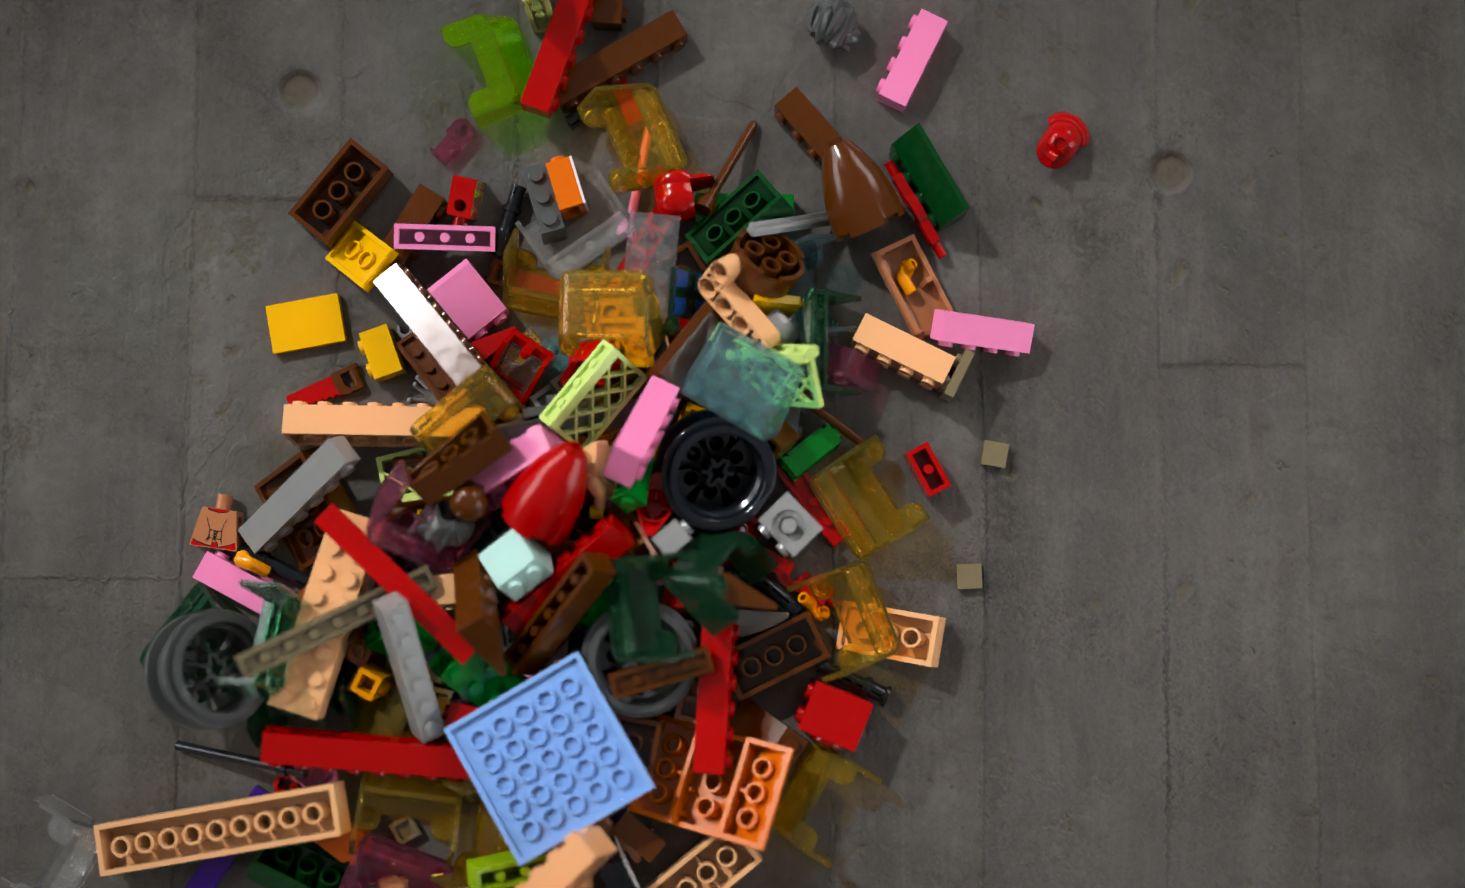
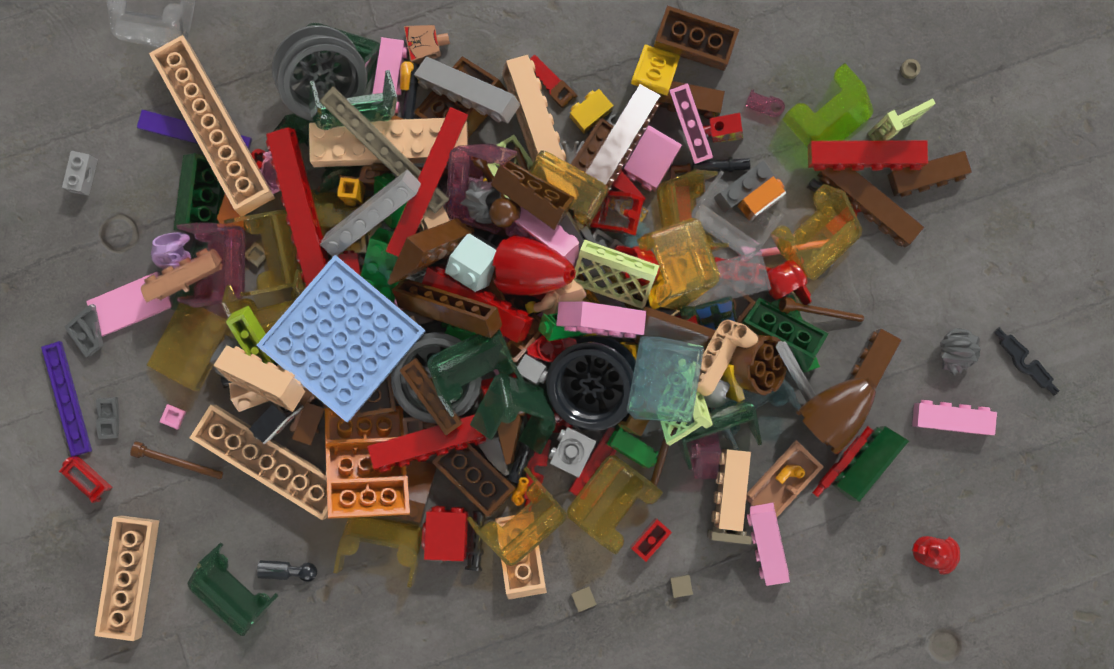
camera: 65 degrees right, 0 degrees up
(238, 758) = (264, 117): black bar -> none
(306, 323) = (592, 49): yellow tile -> none

